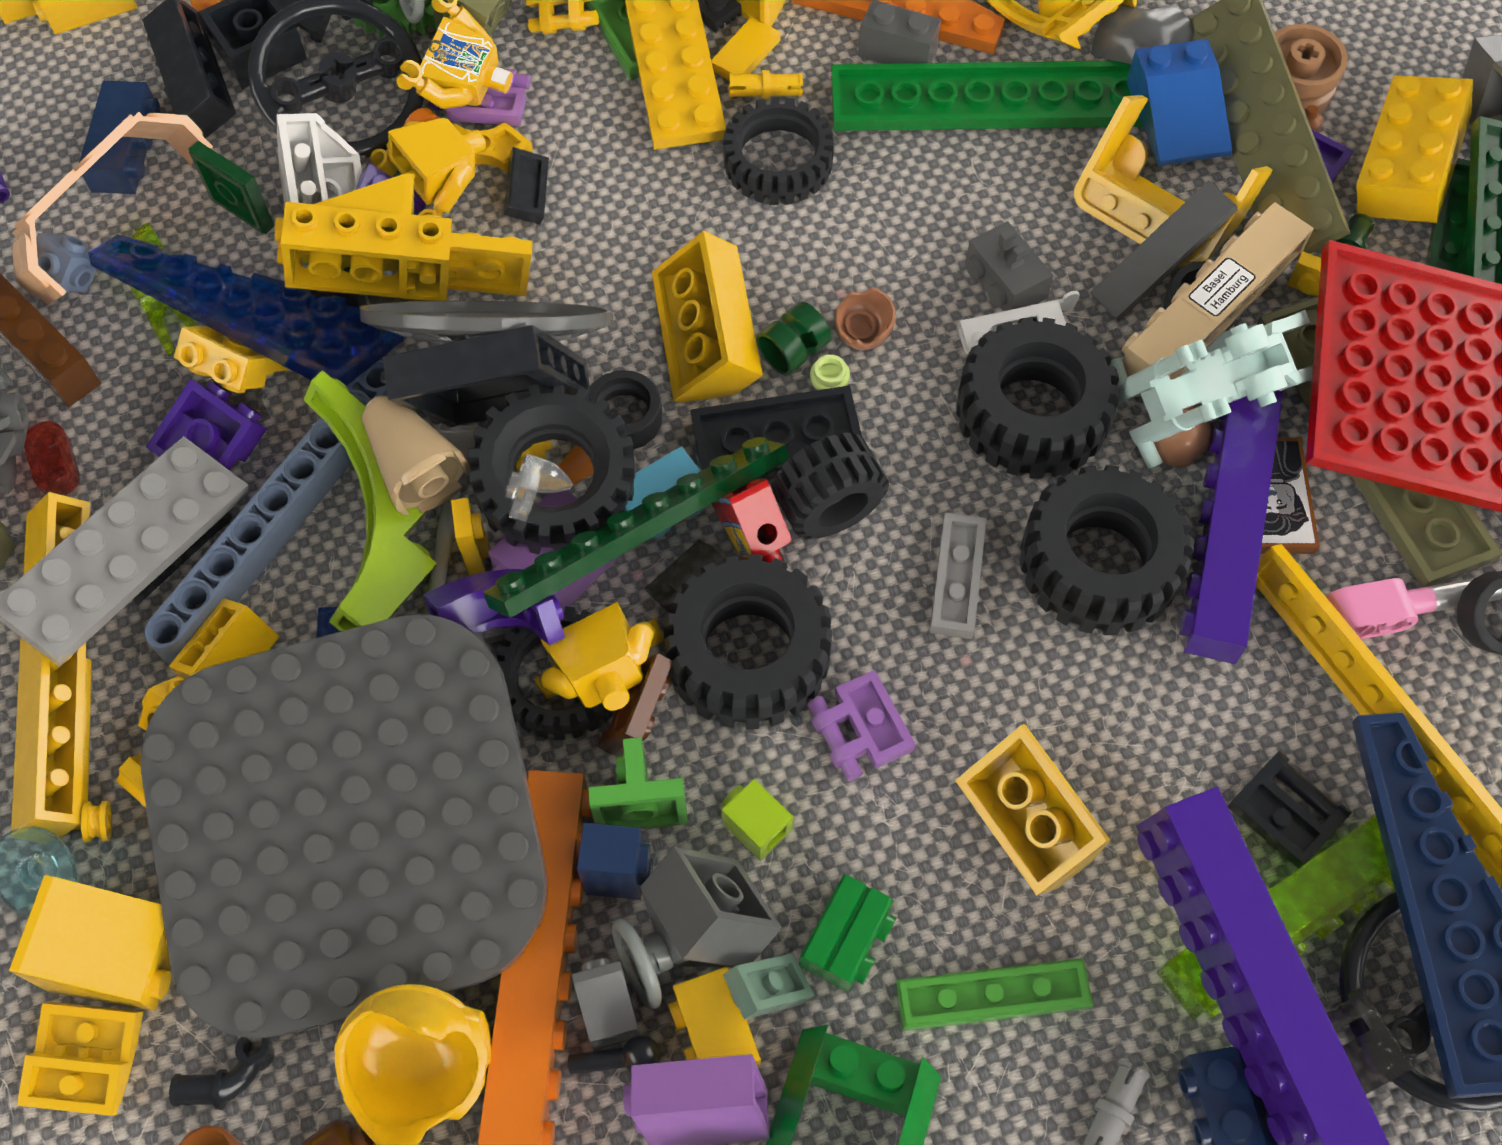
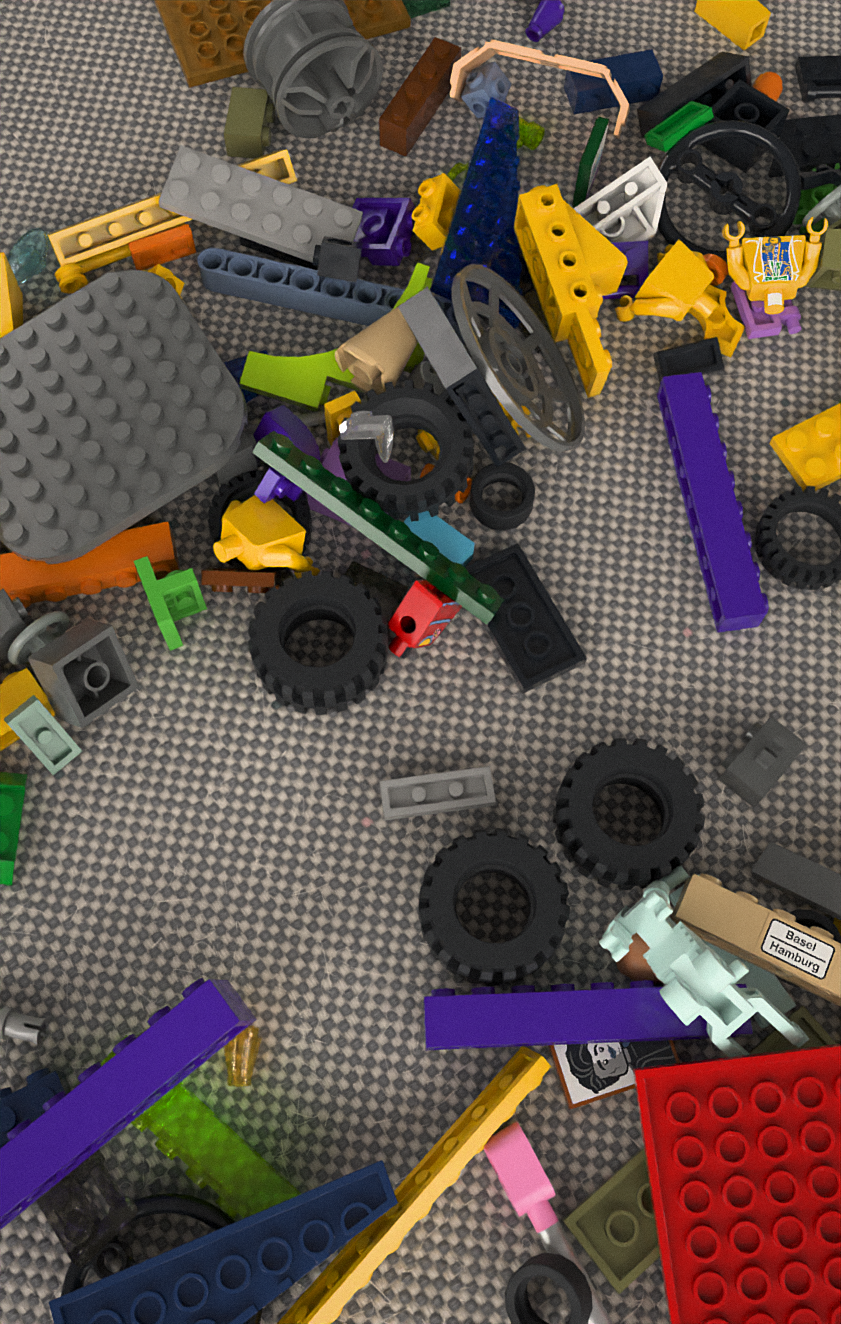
camera: 70 degrees right, 5 degrees up
(54, 462) = (330, 149): clear red plate -> none
(104, 694) = (162, 247): none -> orange plate
(225, 635) = (217, 304): yellow brick -> none
(231, 86) = (677, 125): none -> green tile
(245, 476) = (338, 258): none -> black brick
(613, 861) = (110, 597): dark blue brick -> none
(677, 214) = (711, 503): none -> dark purple brick
(706, 320) = (611, 532): yellow slope -> none
(756, 818) = (178, 693): lime brick -> none
(793, 338) = (615, 601): dark green wheel -> none
(829, 372) = (596, 642): yellowish green plate -> none
(829, 485) = (472, 662): black tyre -> none
(847, 933) = (102, 784): green brick -> none
(865, 319) = (657, 652): nougat hair -> none
(874, 720) = (286, 758): medium lavender plate -> none
(974, 328) = (726, 806): white piece -> none
(993, 994) = (84, 910): bright green tile -> none
(1033, 811) = (222, 893): yellow slope -> none
(1281, 818) = (287, 1118): black plate -> none

